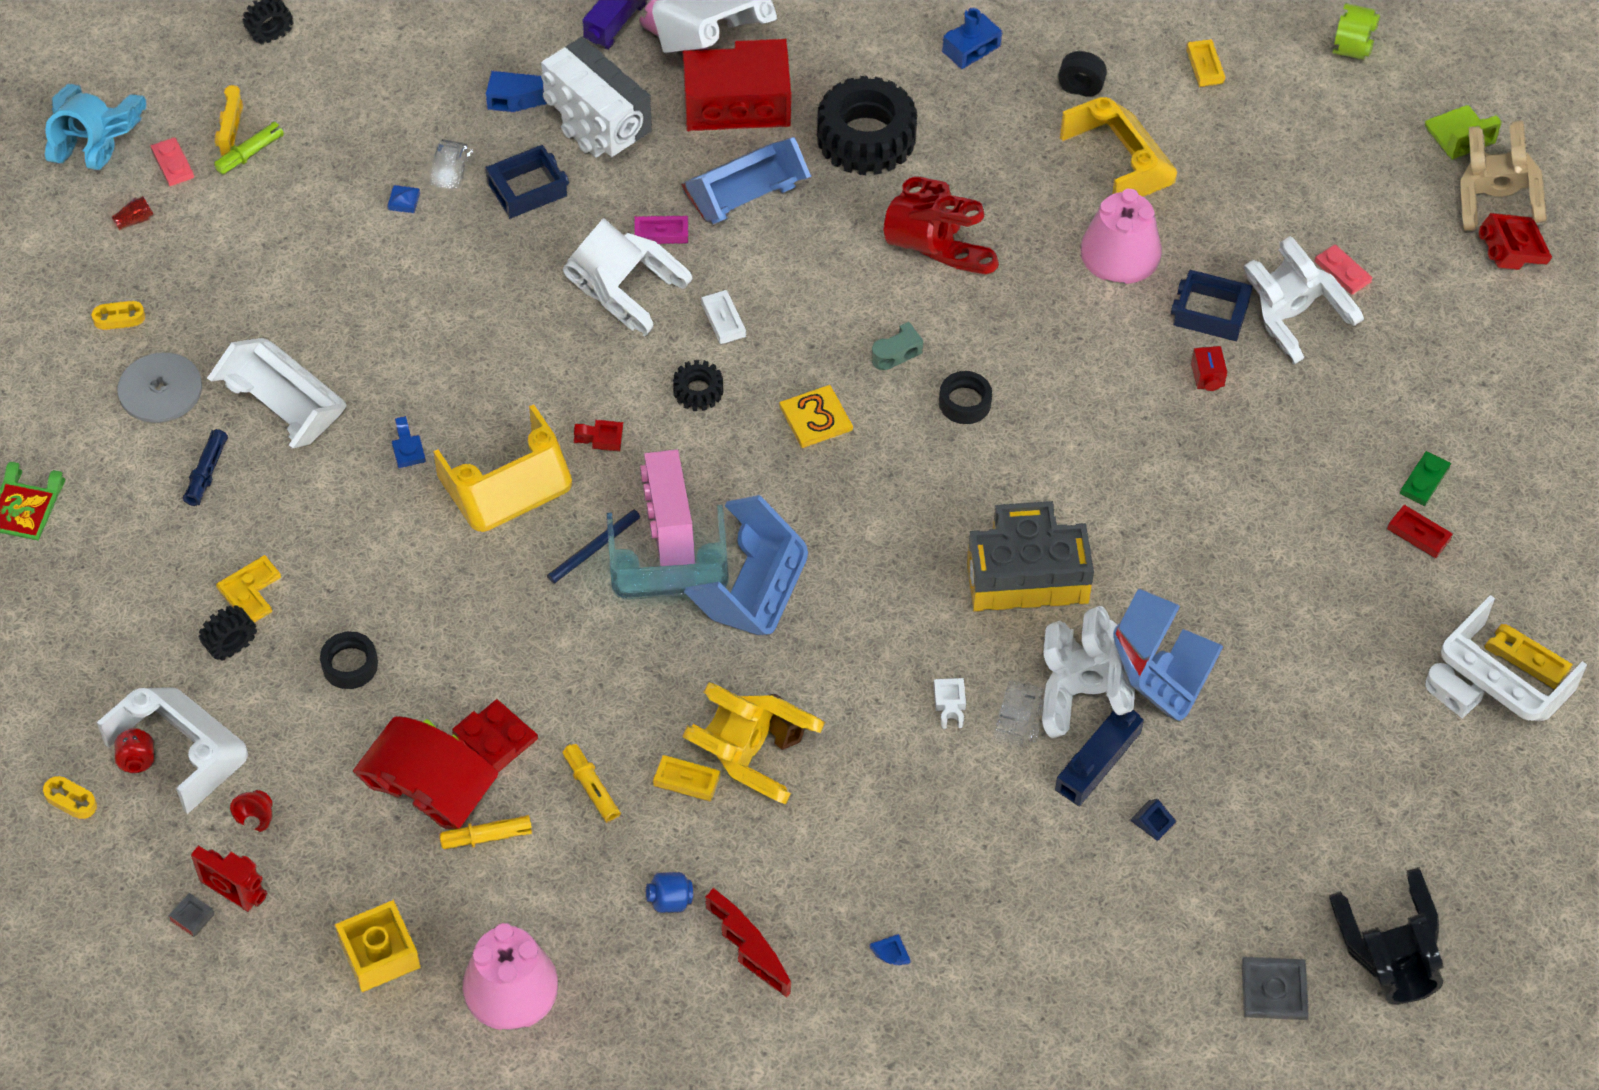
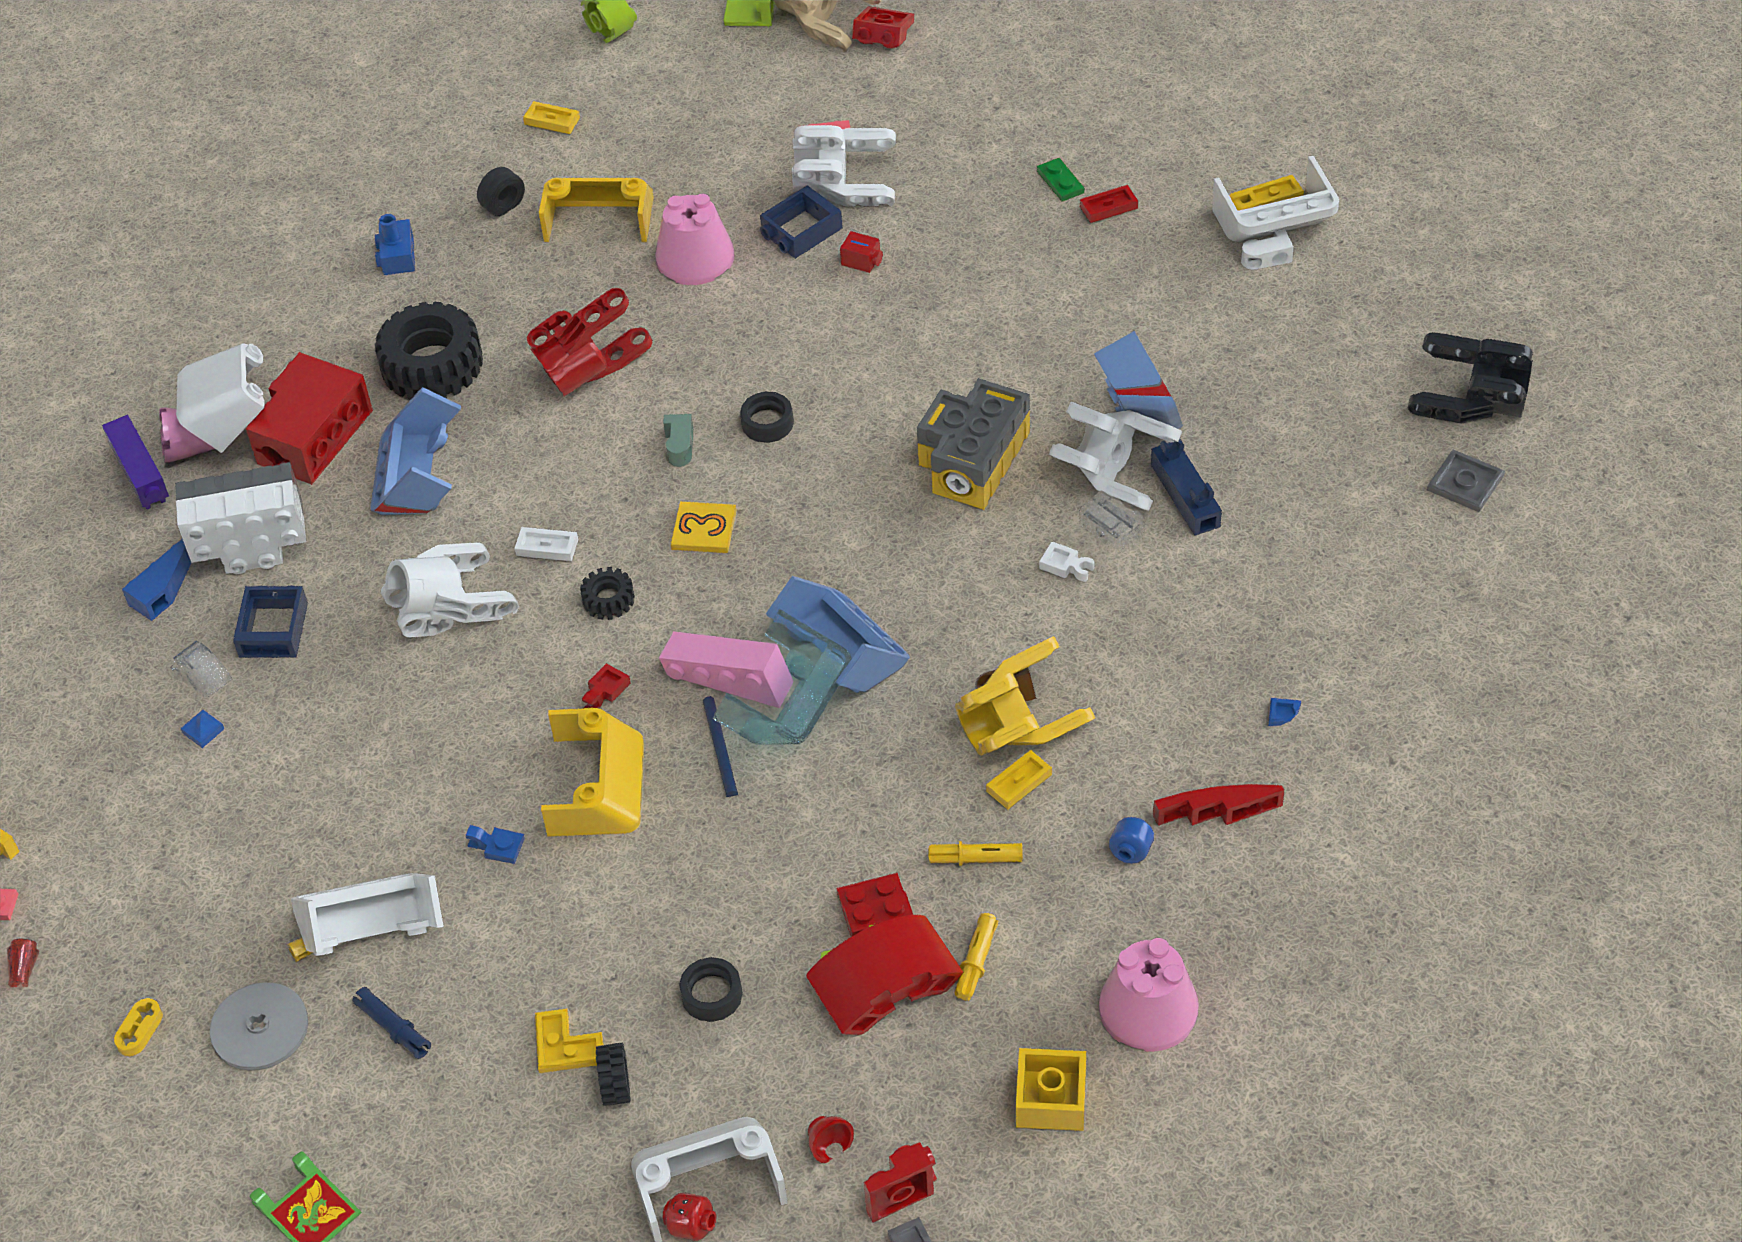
camera: 55 degrees left, 5 degrees down
(241, 153) = (28, 839): lime axle -> none
(662, 228) = (413, 542): dark pink plate -> none
(1153, 819) = (1263, 484): dark blue slope -> none

